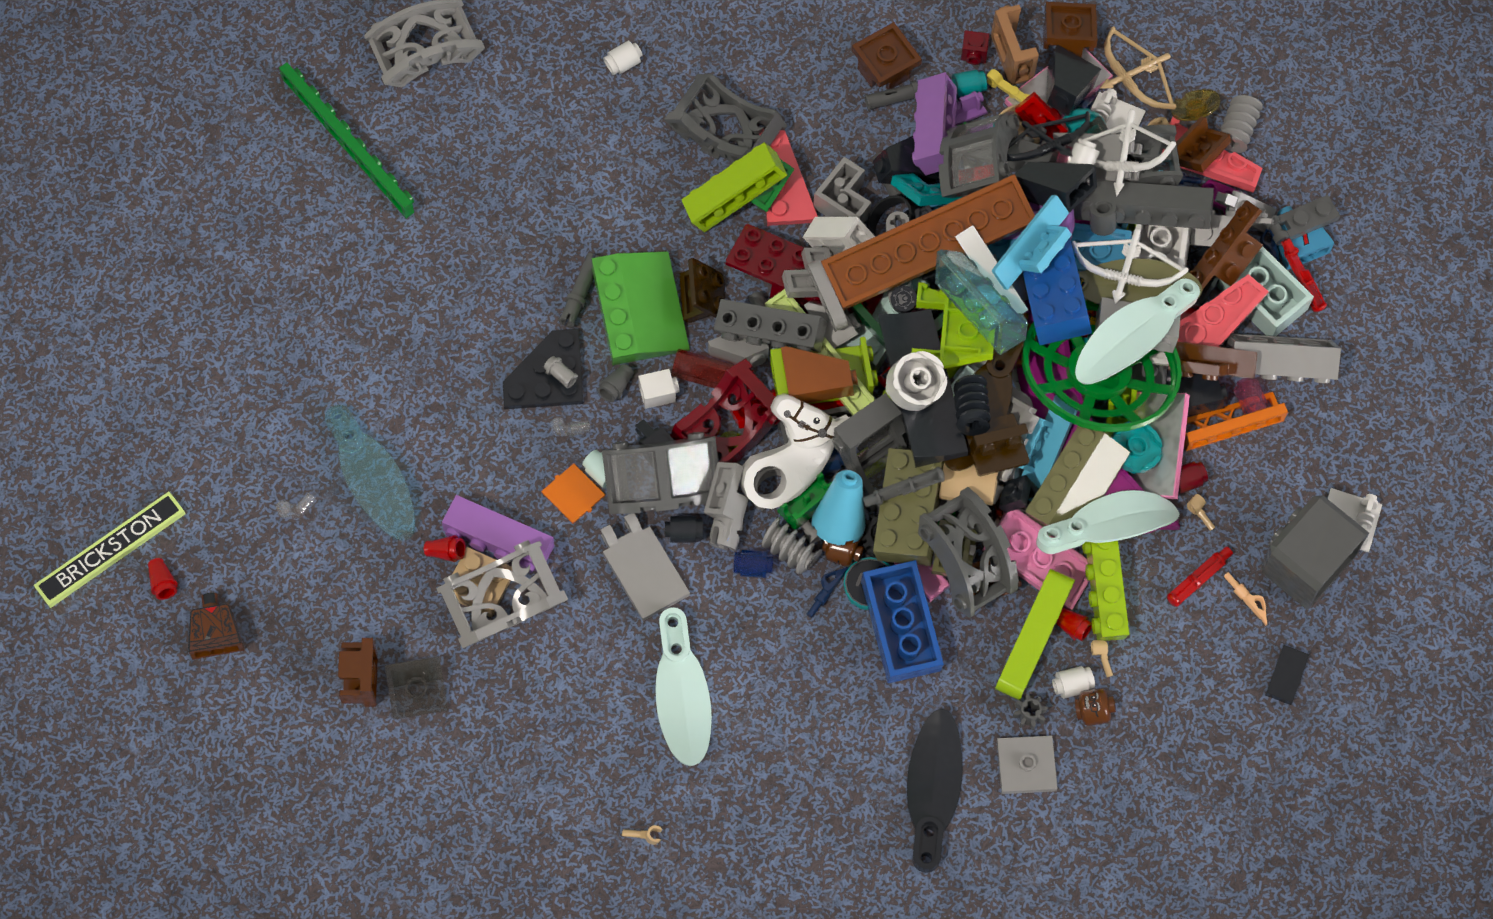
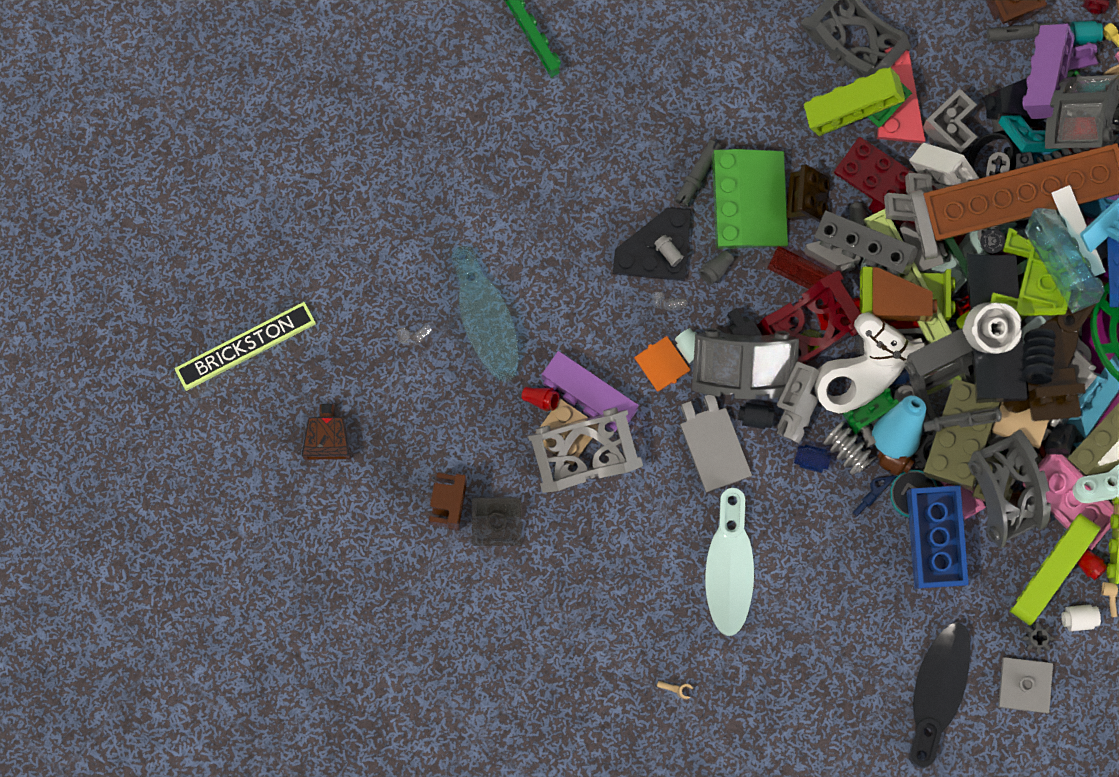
camera: 10 degrees right, 10 degrees up
(161, 579) = (287, 384): red cone -> none
(658, 388) = (754, 279): white brick -> none
(1094, 706) = (1096, 644): reddish brown head -> none

